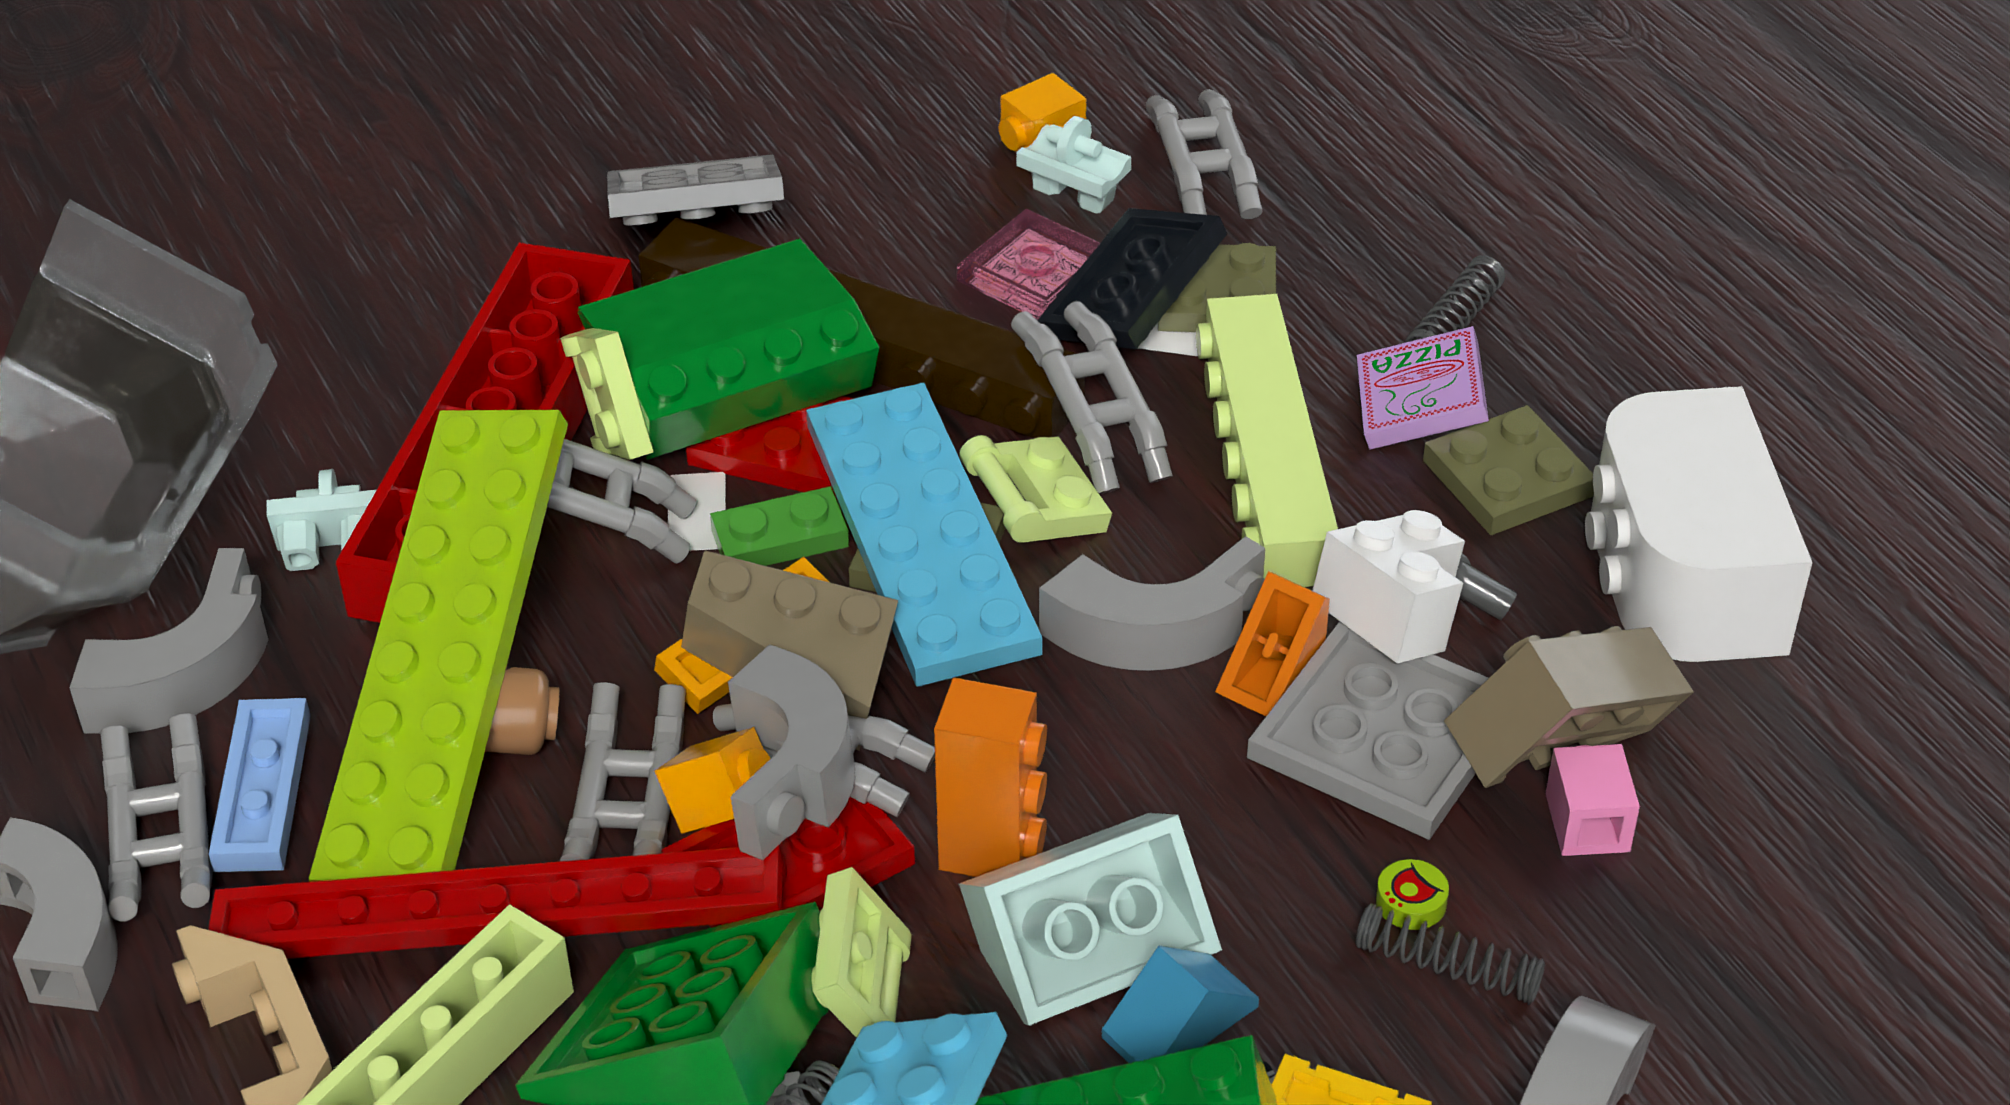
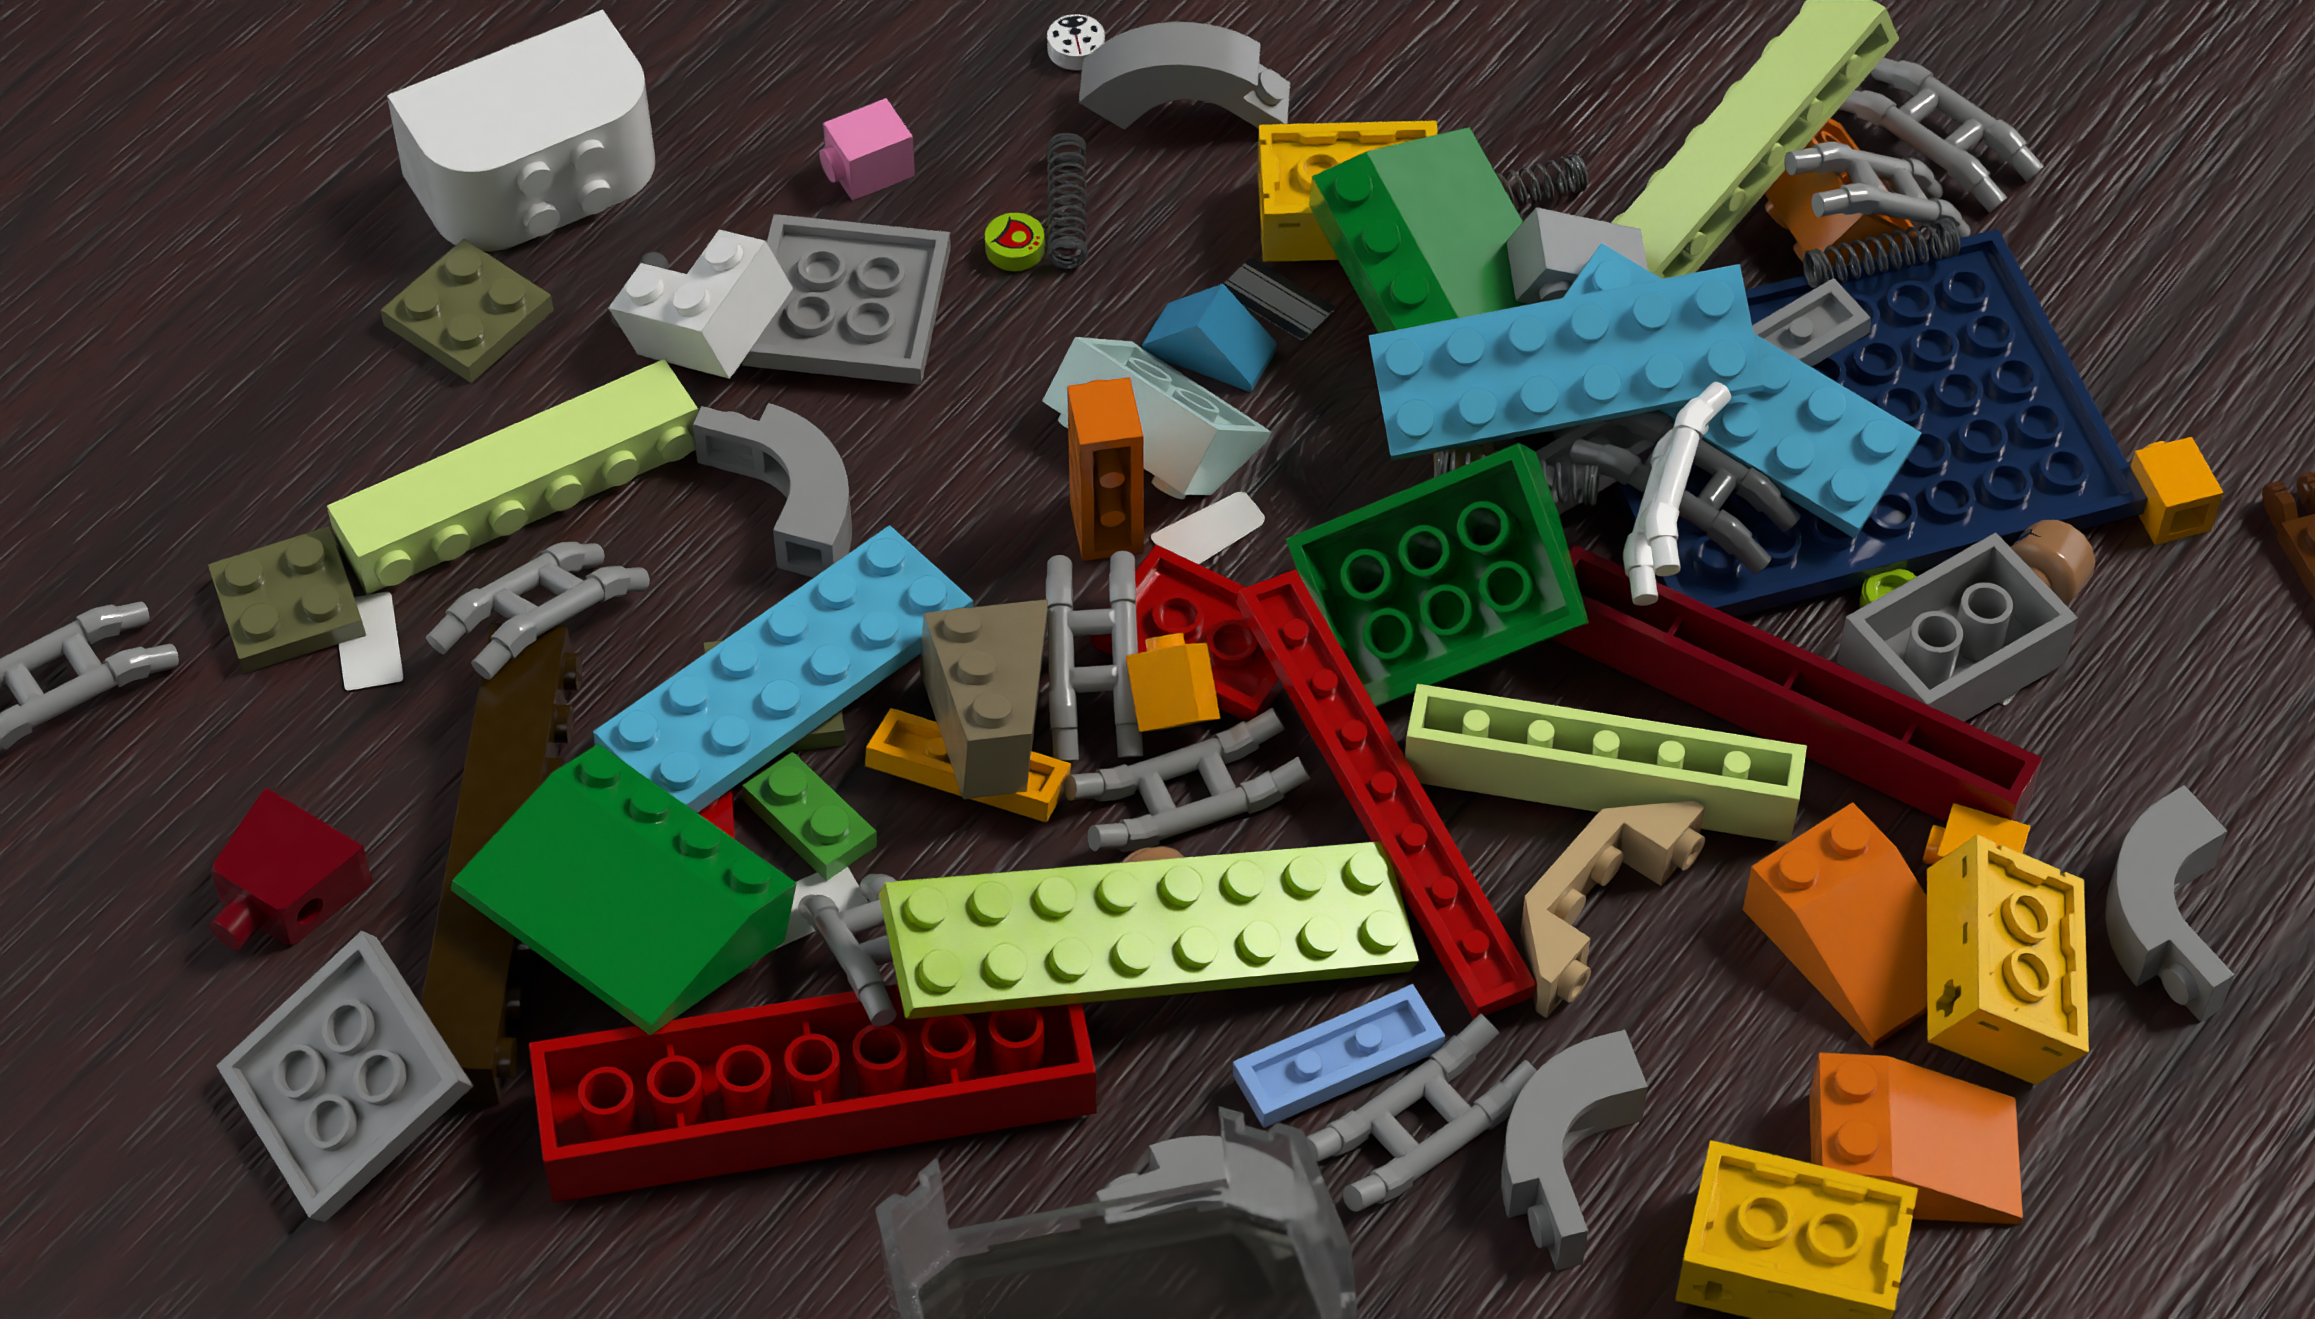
camera: 115 degrees left, 10 degrees up
(315, 519) = (986, 1175): light aqua hips -> none
(608, 392) = (756, 937): yellowish green plate -> none
(807, 723) = (1133, 588): light grey arch -> none
(858, 953) = (1285, 518): yellowish green plate -> none
(926, 218) = (284, 874): none -> dark red torso
(937, 930) = (1211, 528): none -> white sticker
(1026, 262) = (309, 757): clear pink tile -> none
(1034, 106) = (59, 832): light orange brick -> none
(1055, 488) = (665, 626): yellowish green plate -> none
(1074, 160) = (142, 767): light aqua hips -> none
(1137, 272) = (334, 638): black plate -> none
(1275, 643) = (805, 382): orange slope -> none
(1421, 388) = (395, 384): lavender tile -> none
(1470, 270) = (320, 412): dark grey piece -> none
(1566, 693) = (796, 161): dark tan wedge -> none
(1712, 1055) = (1073, 39): none -> white tile

